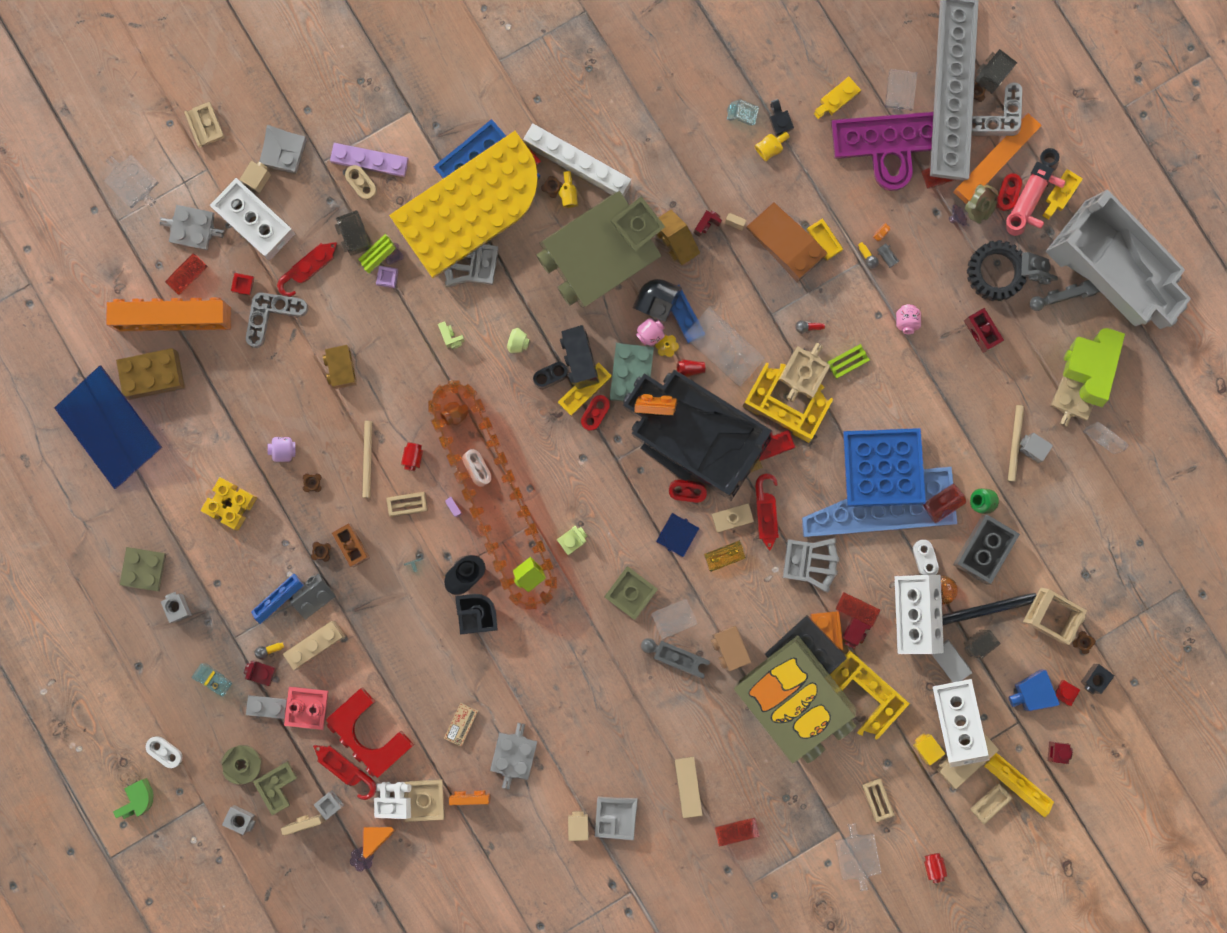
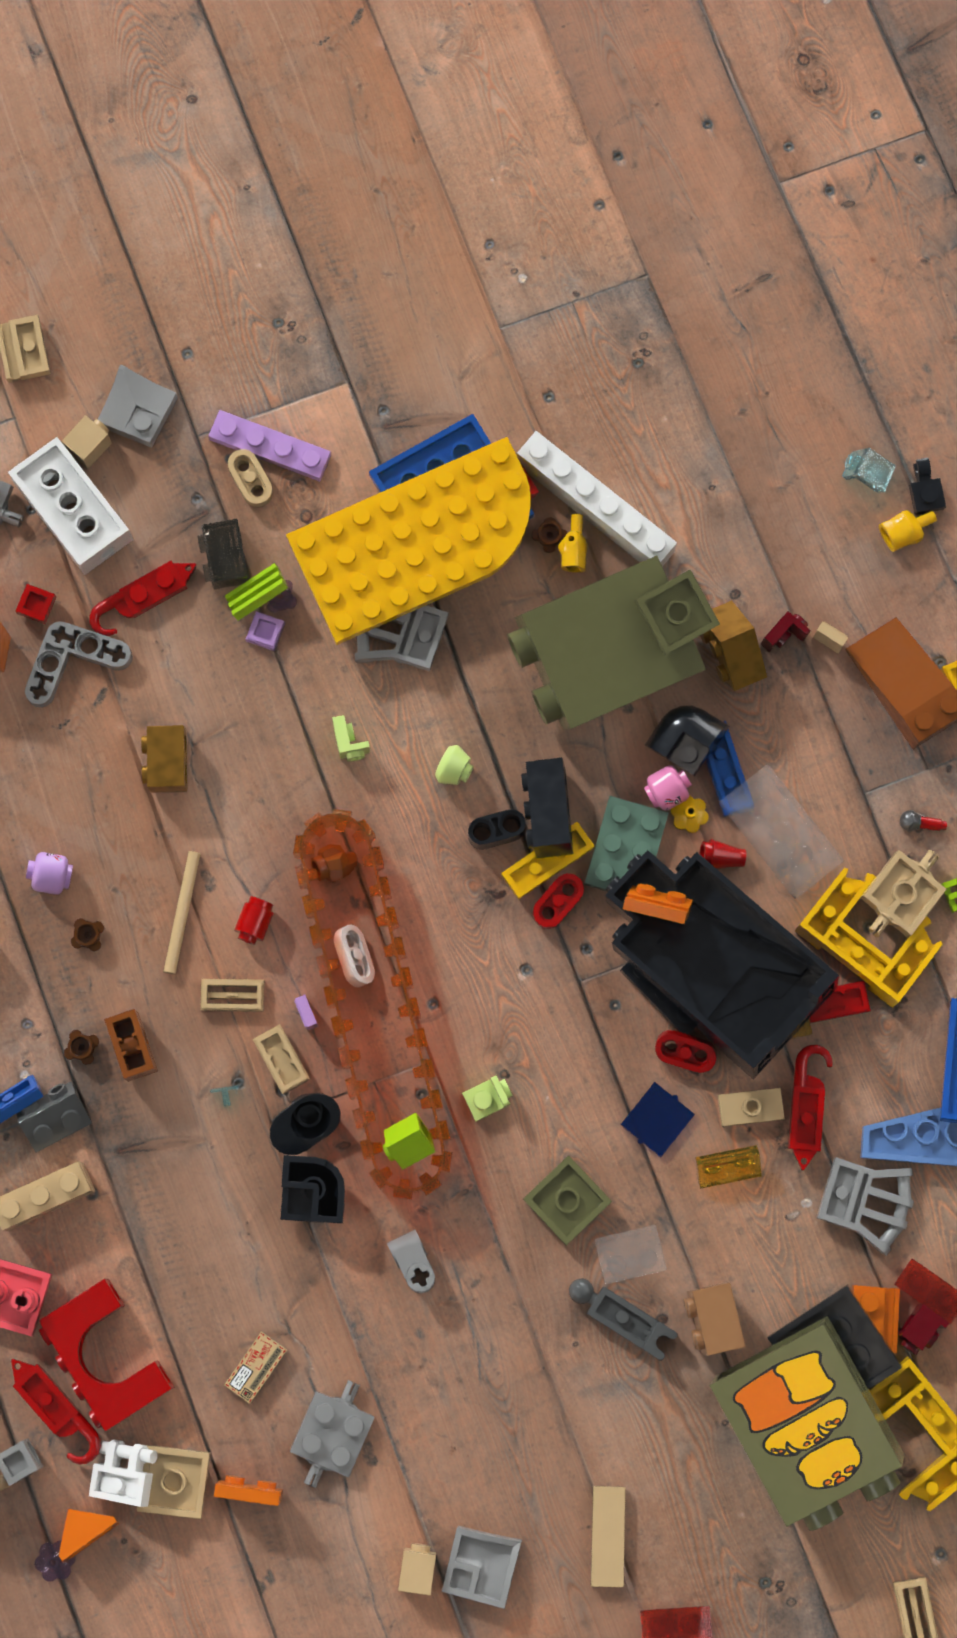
camera: 10 degrees right, 5 degrees down
(443, 538) = (281, 1059): none -> tan plate
(542, 643) = (410, 1257): none -> light grey piece

